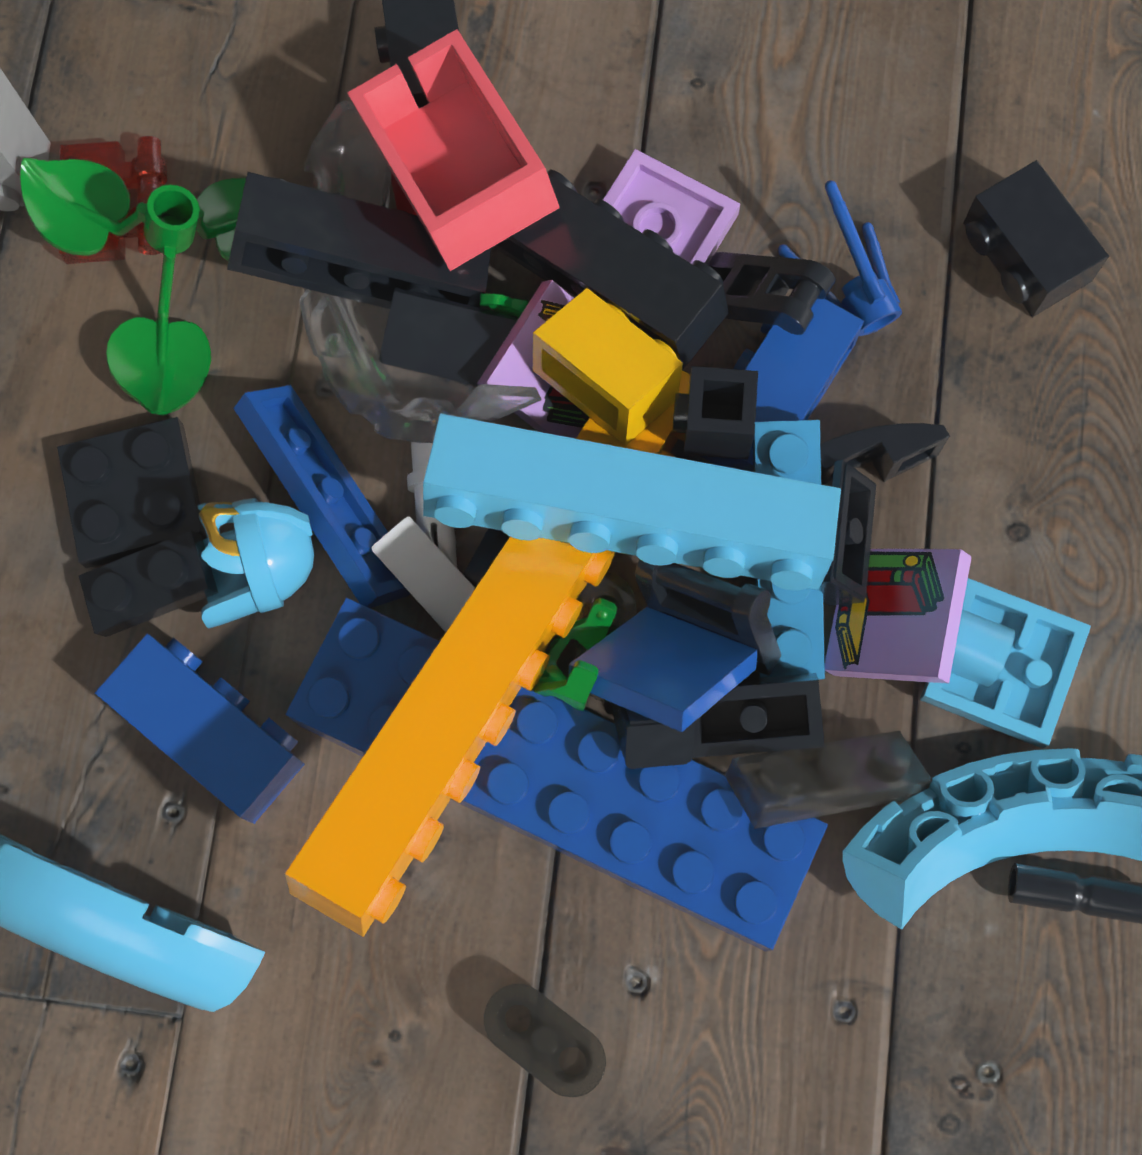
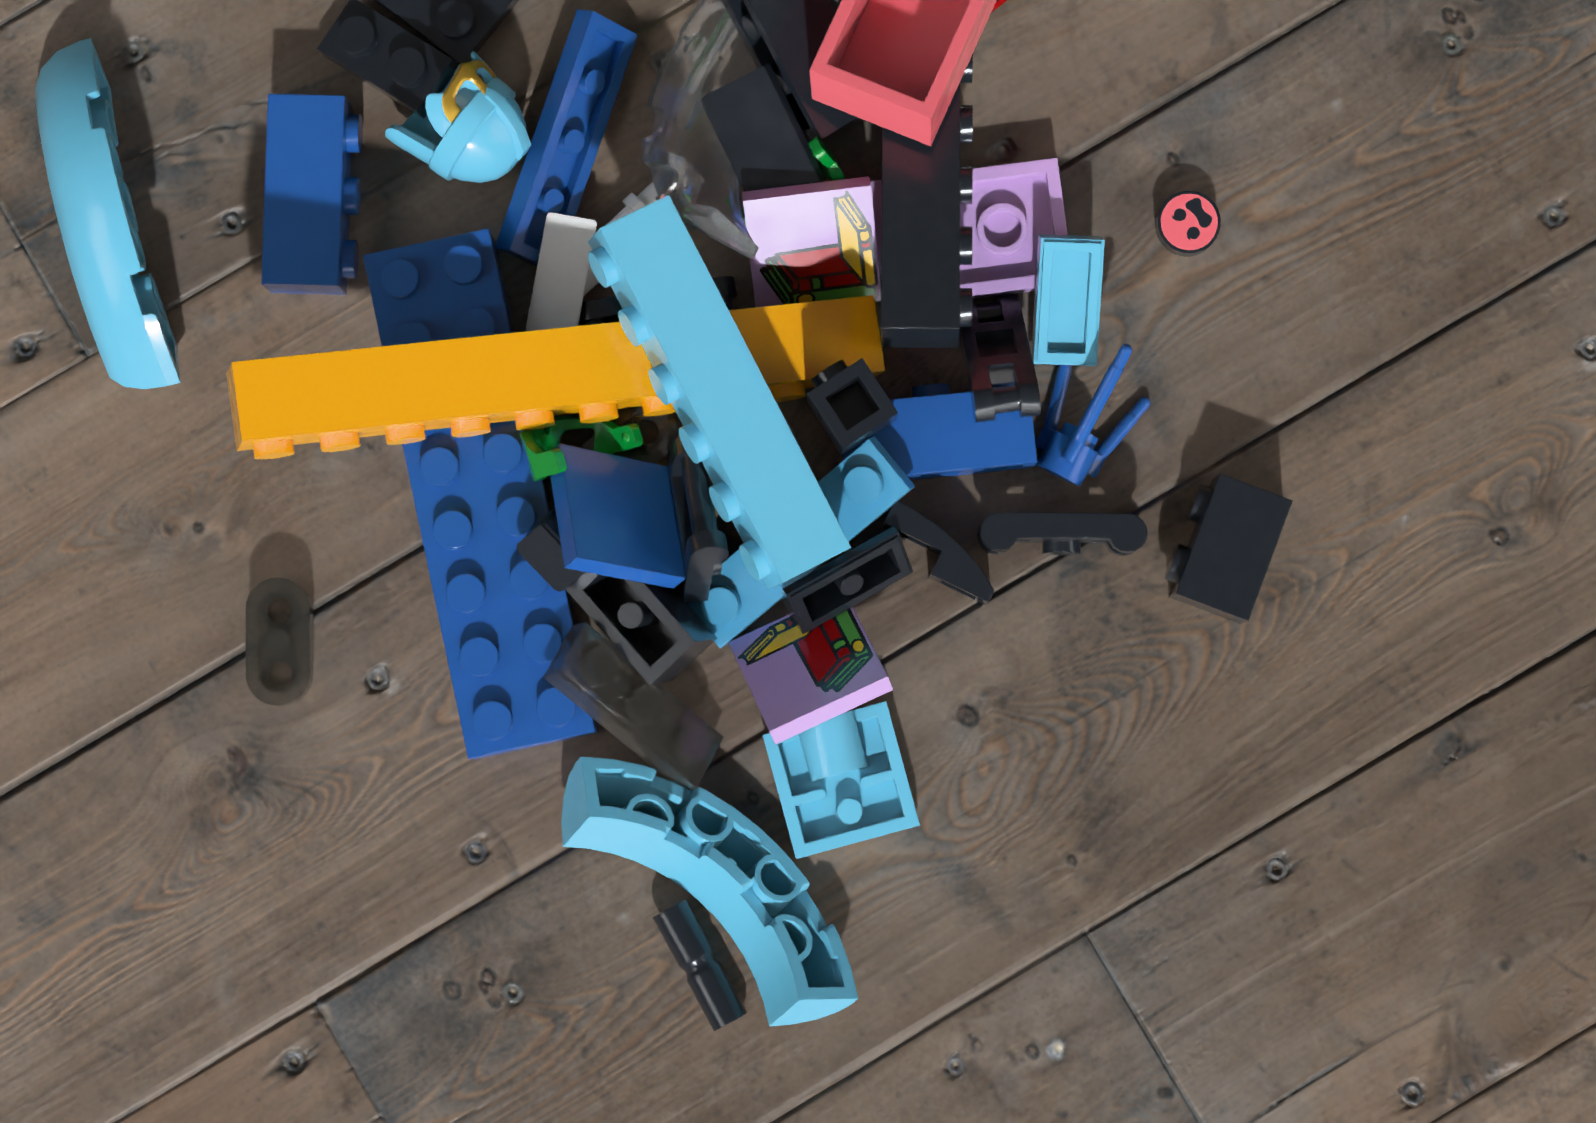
camera: 45 degrees right, 10 degrees up
(606, 365) = (827, 287): yellow piece -> none
(749, 210) = (1067, 299): none -> medium azure tile
(755, 101) = (1188, 223): none -> tile
(929, 349) = (1062, 532): none -> black plate

